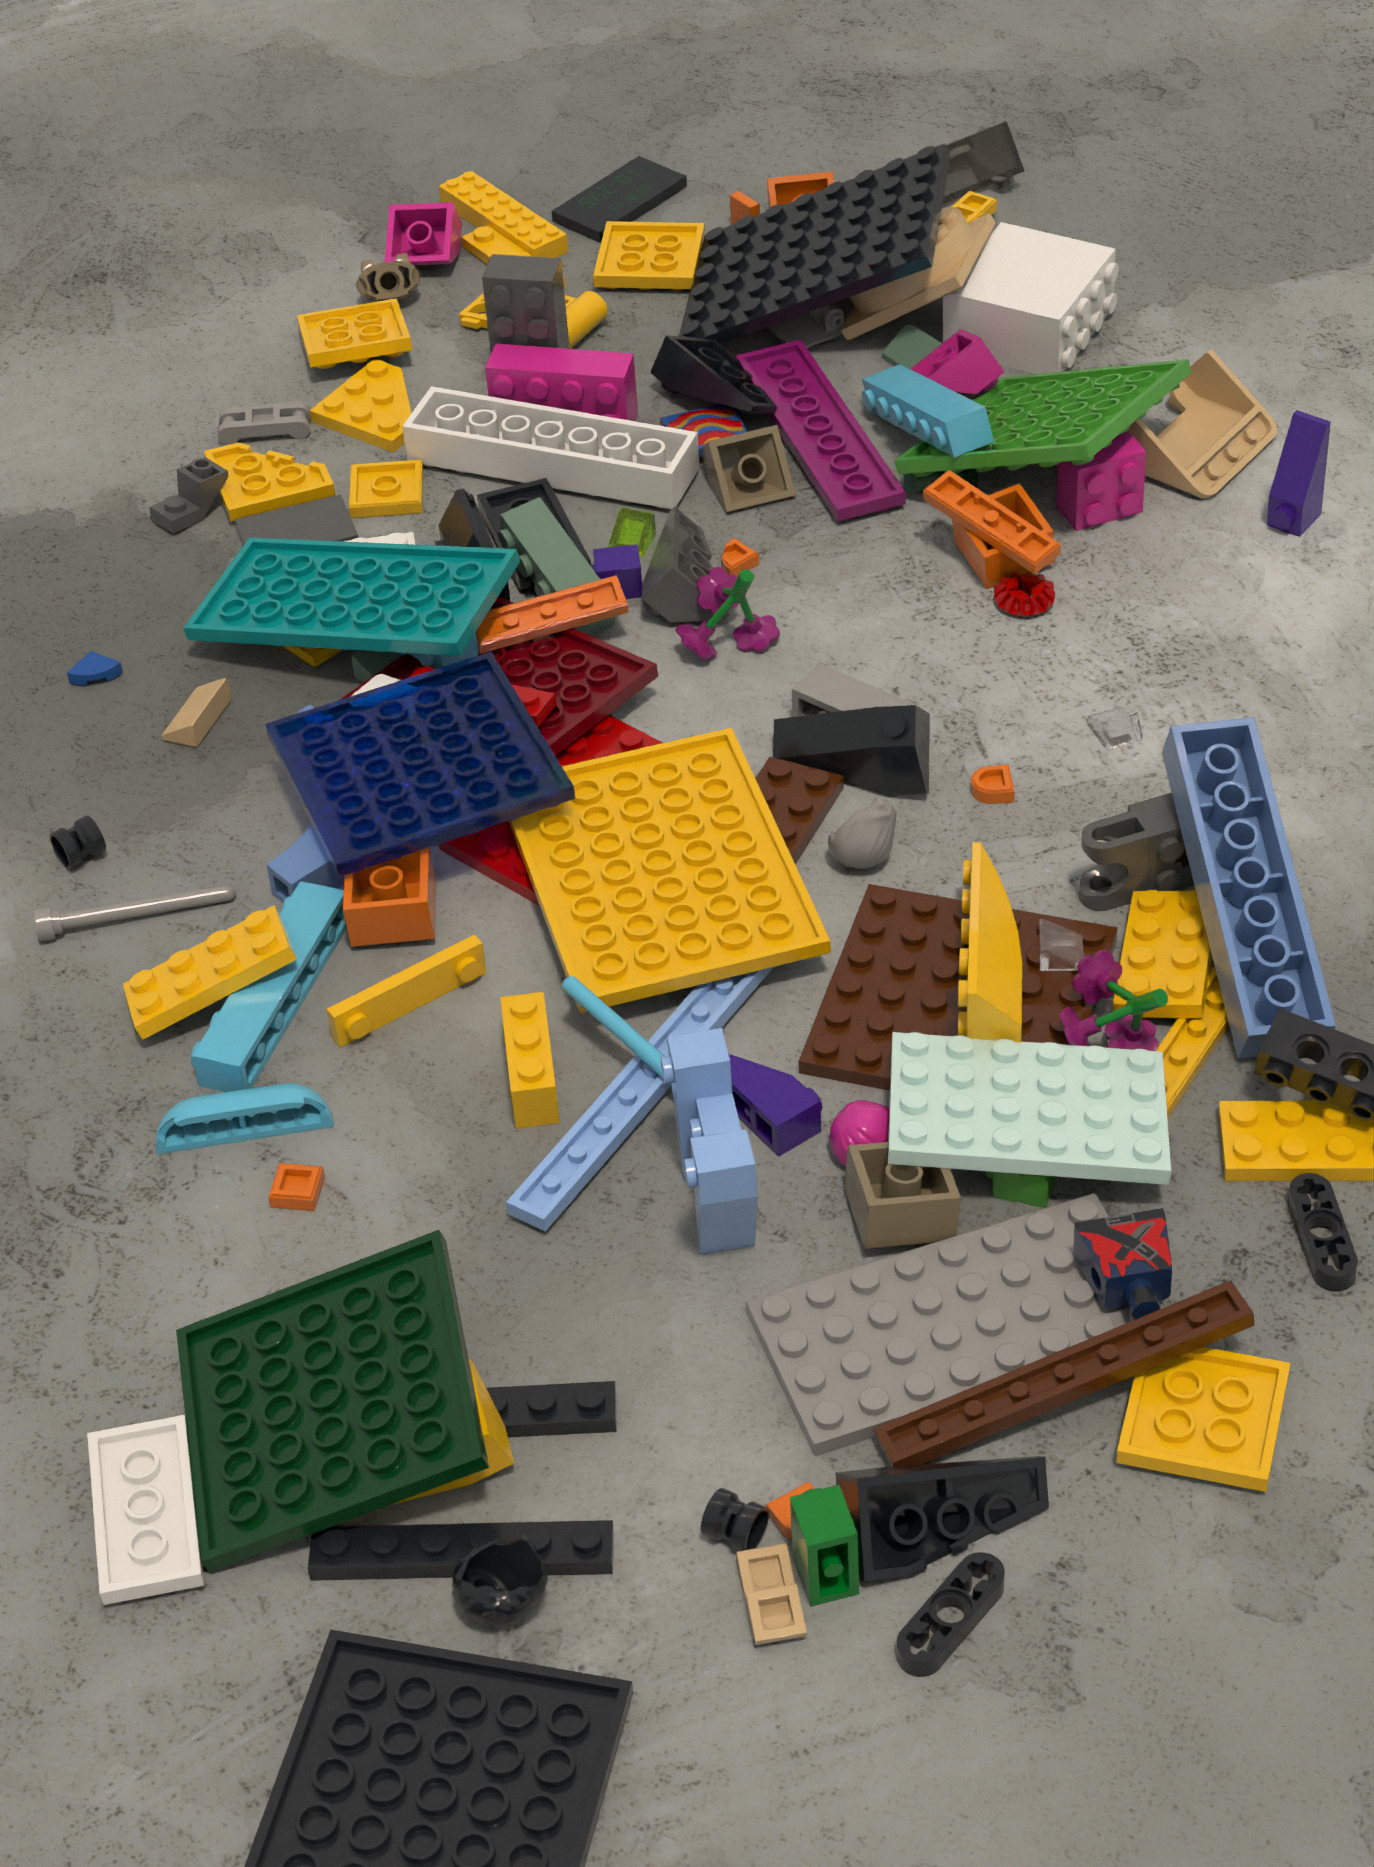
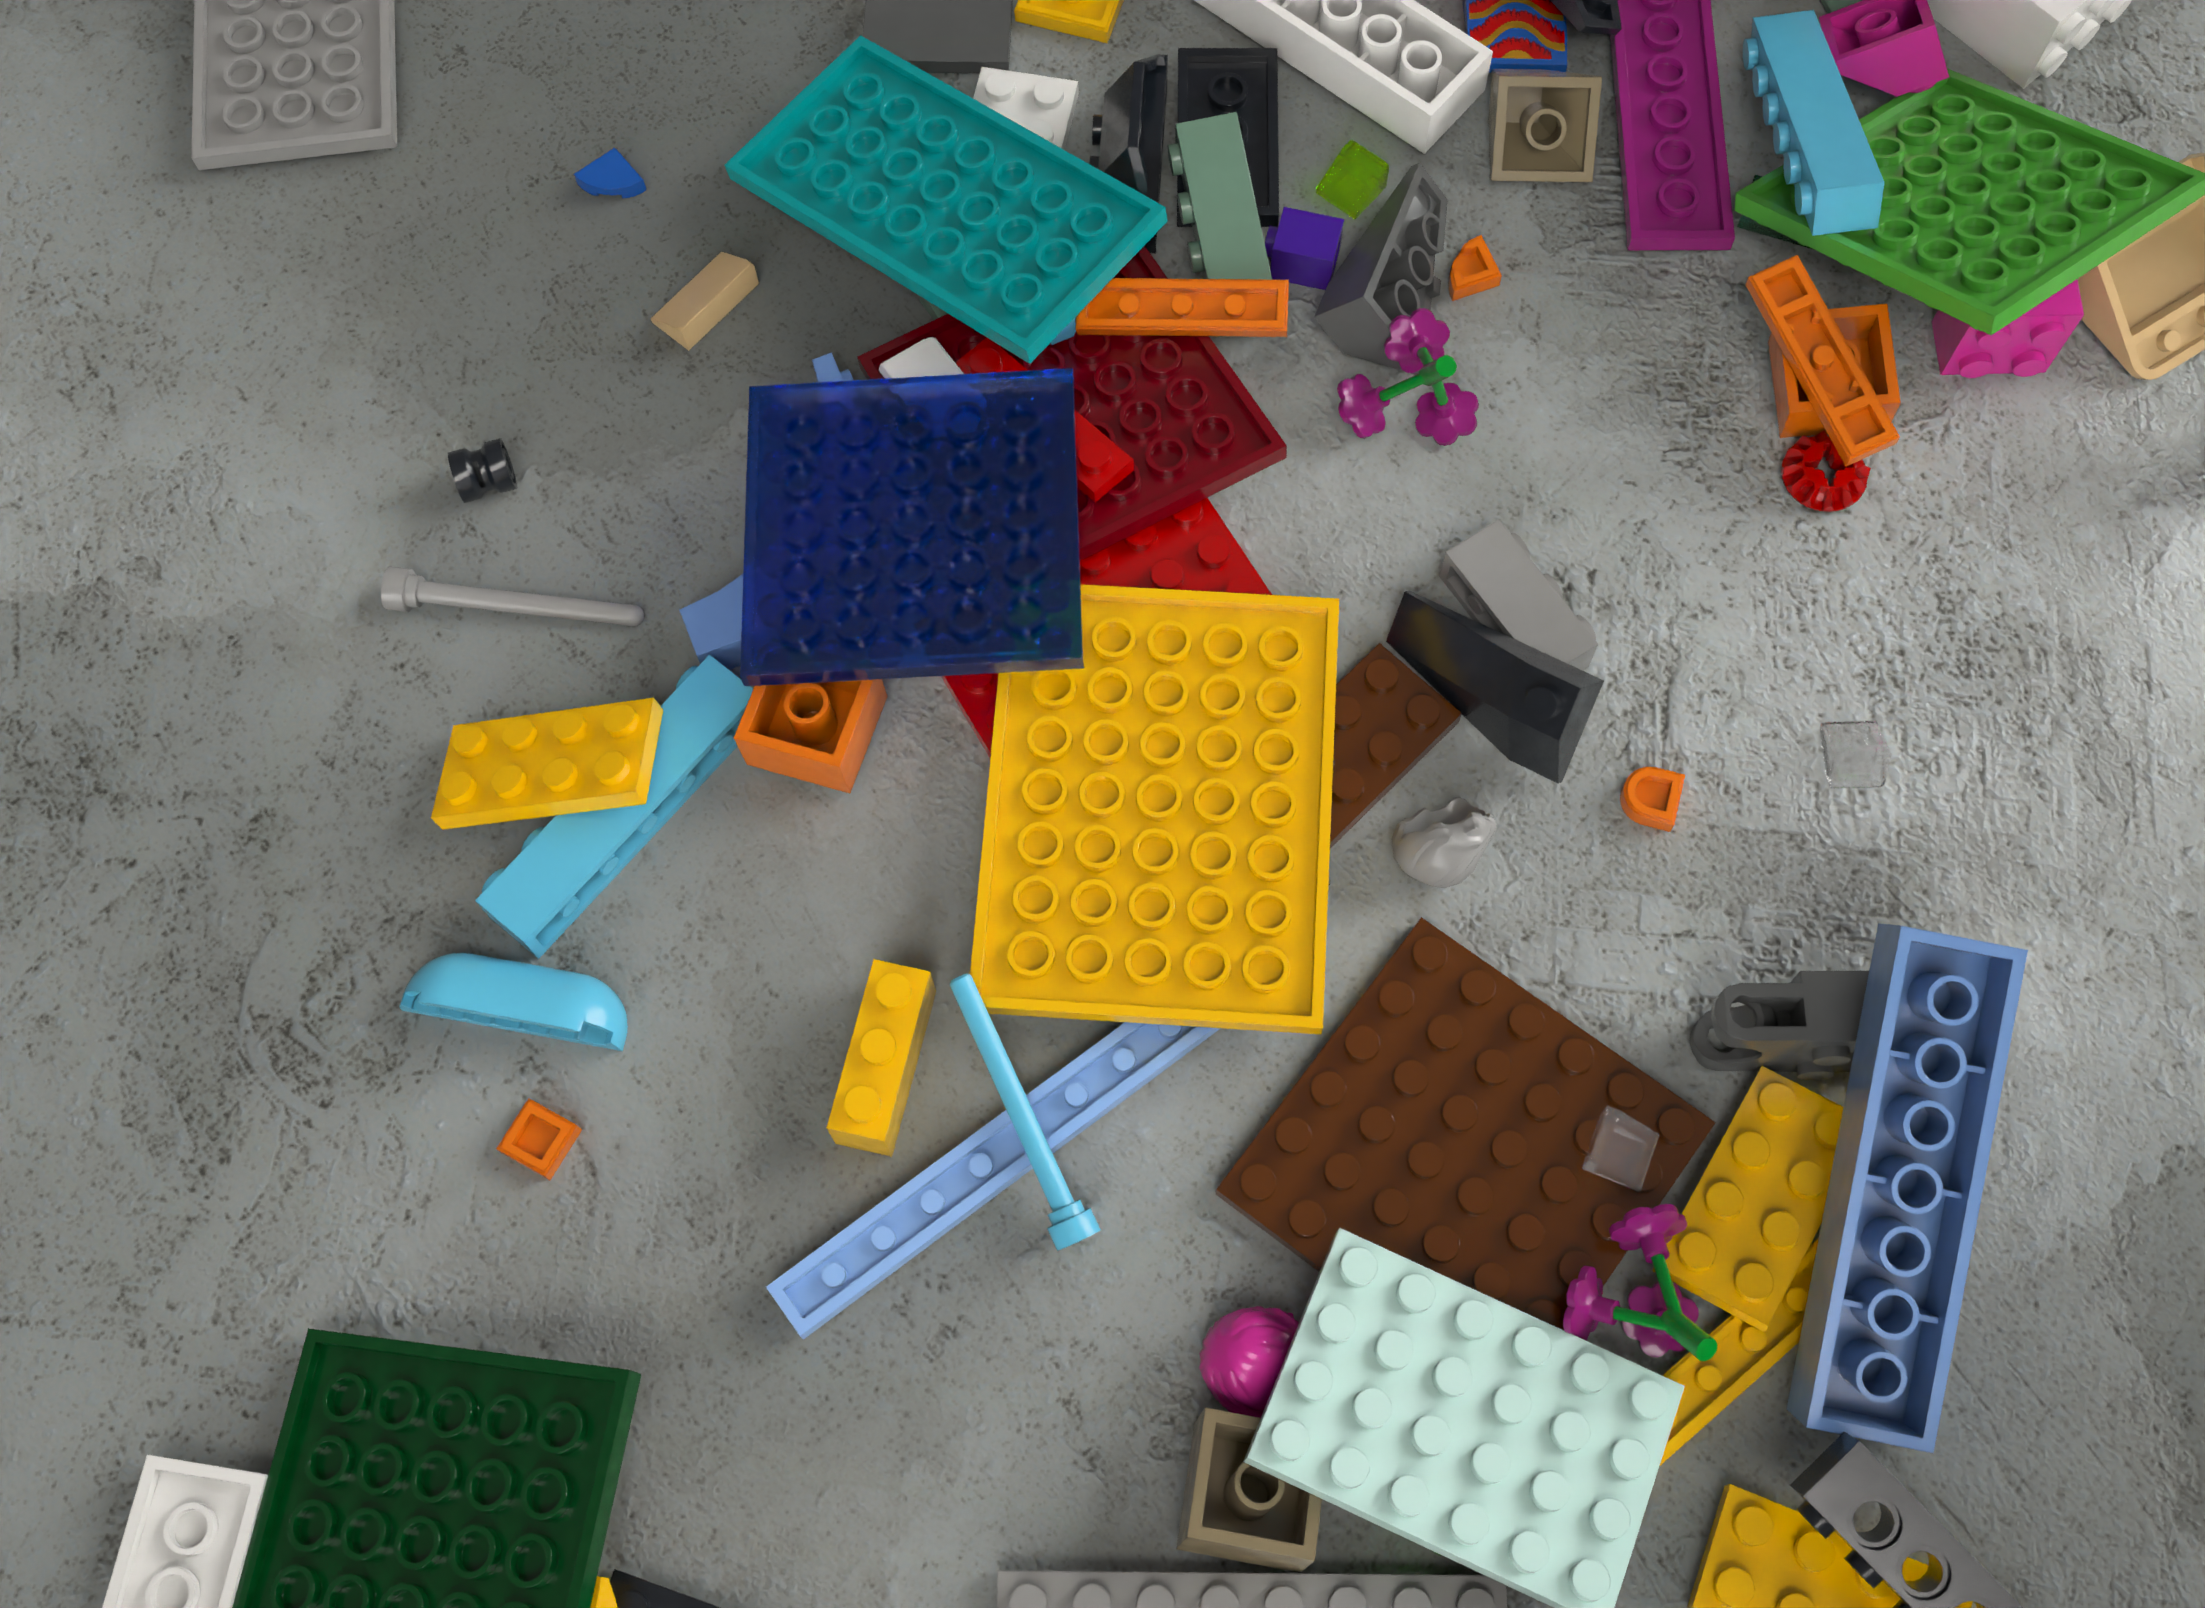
camera: 20 degrees right, 25 degrees up
(406, 991) = (854, 858): yellow plate -> none
(711, 1144) = (1039, 1291): light blue wedge -> none
(774, 1105) = (1150, 1247): dark purple slope -> none
(992, 958) = (1519, 1147): yellow wedge -> none

